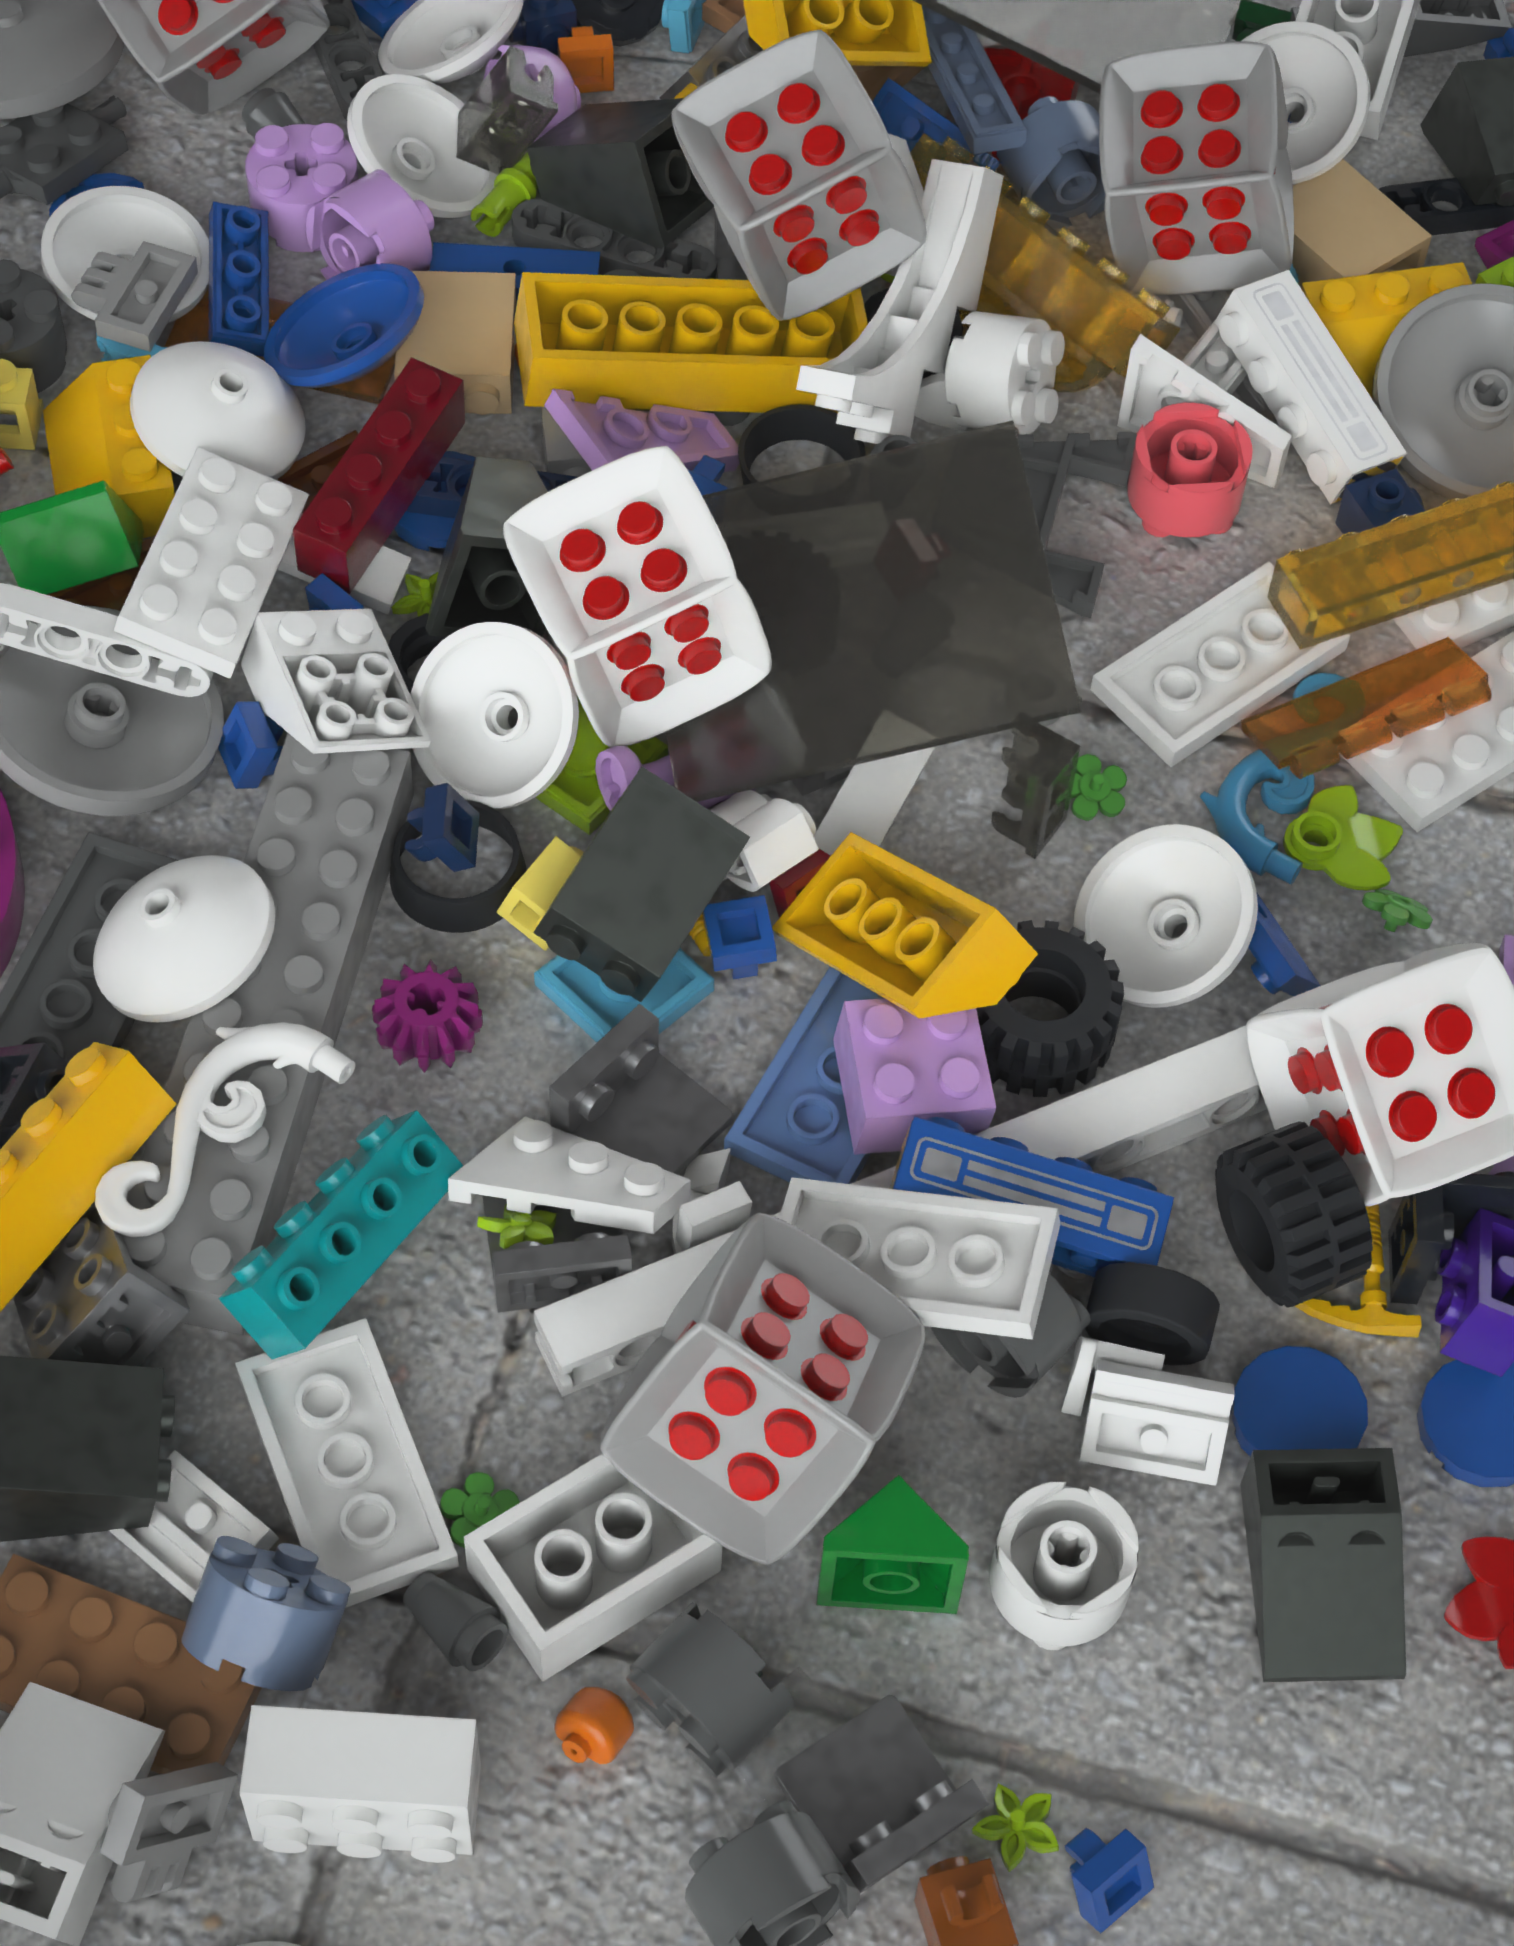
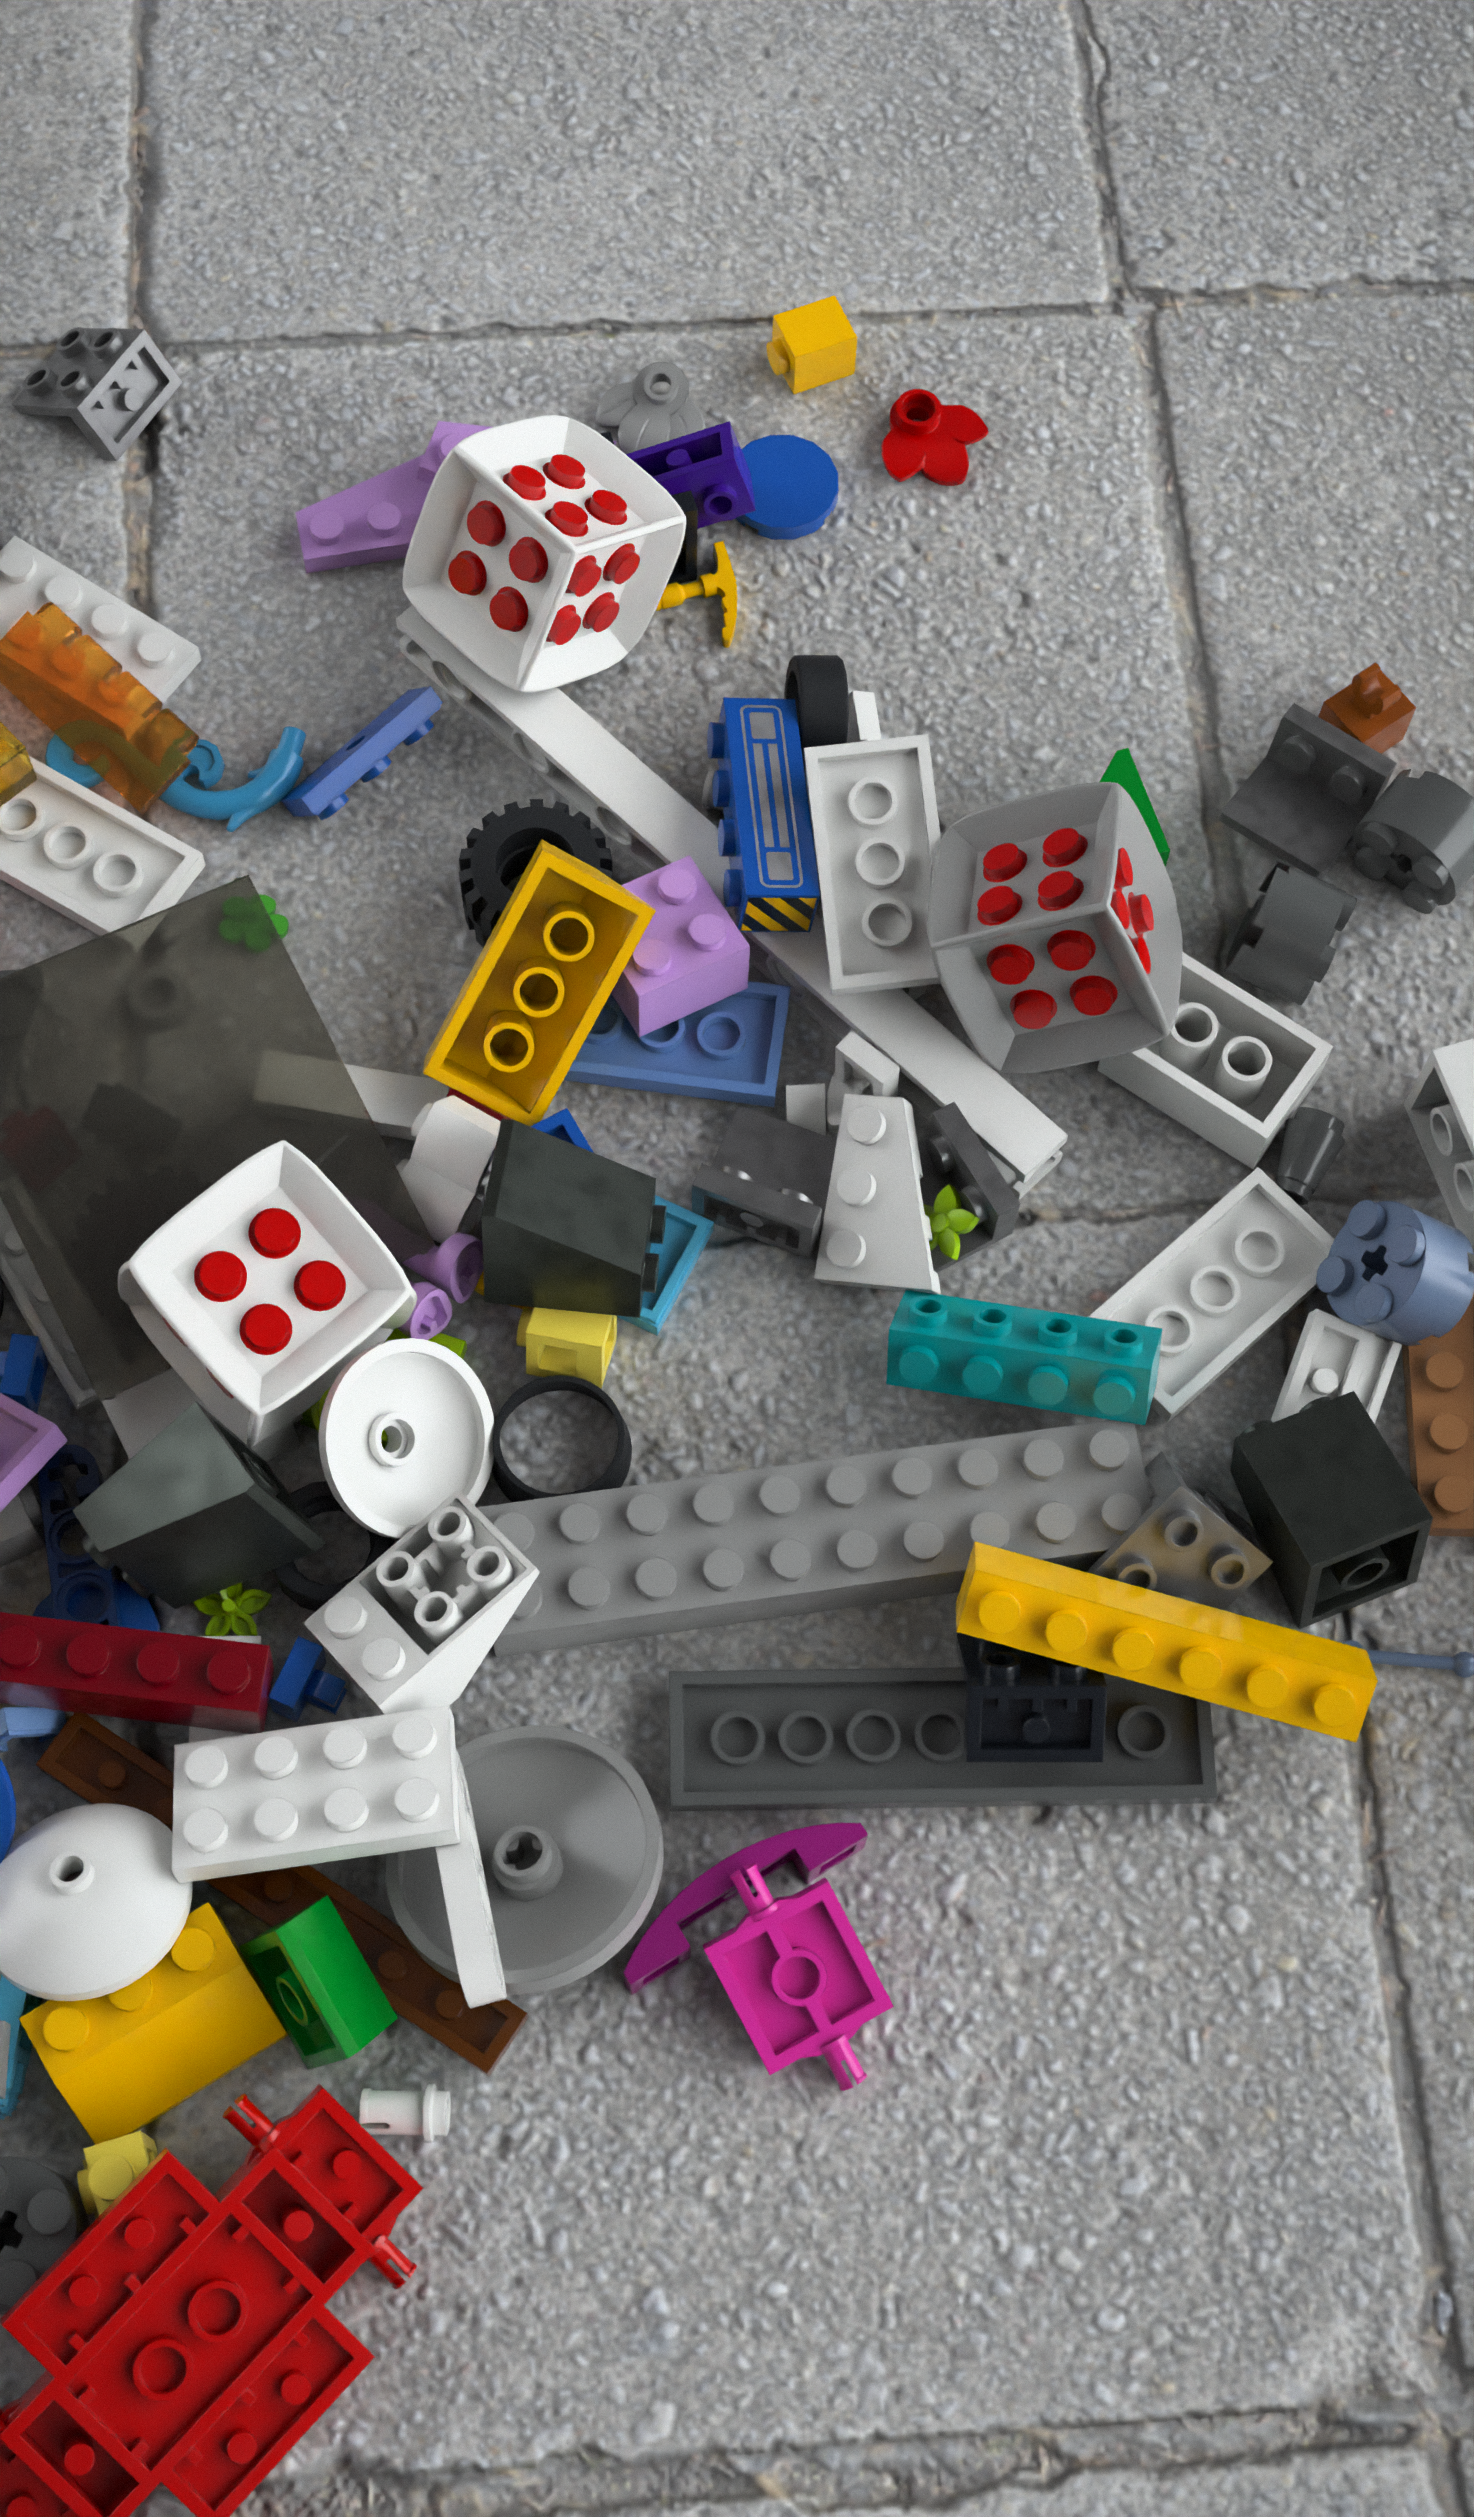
camera: 110 degrees left, 10 degrees up
(184, 938) = (752, 1588): white dish -> none
(229, 1124) = (963, 1469): white plant -> none
(250, 745) = (500, 1694): blue tile -> none
(427, 1015) = (748, 1421): magenta gear -> none
(447, 829) = (556, 1433): dark blue tile -> none
(474, 1505) = (1199, 1180): bright green plant -> none
(594, 1725) = (1337, 1027): orange piece -> none
(1018, 1825) = (1261, 716): lime plant -> none
(1032, 1559) = (1058, 722): white brick -> none
(1038, 783) = (310, 932): clear smoke hinge -> none
(1108, 1876) = (1282, 638): blue tile -> none
(1152, 887) = (433, 778): white dish -> none
(1157, 1422) = (901, 689): white plate -> none
(1293, 1214) = (683, 625): black tyre -> none
(1298, 1402) = (833, 611): blue tile -> none
(1326, 1563) = (963, 555): pearl dark grey slope -> none
(1349, 840) = (239, 703): lime plate -> none
(1397, 909) = (305, 645): bright green plant -> none

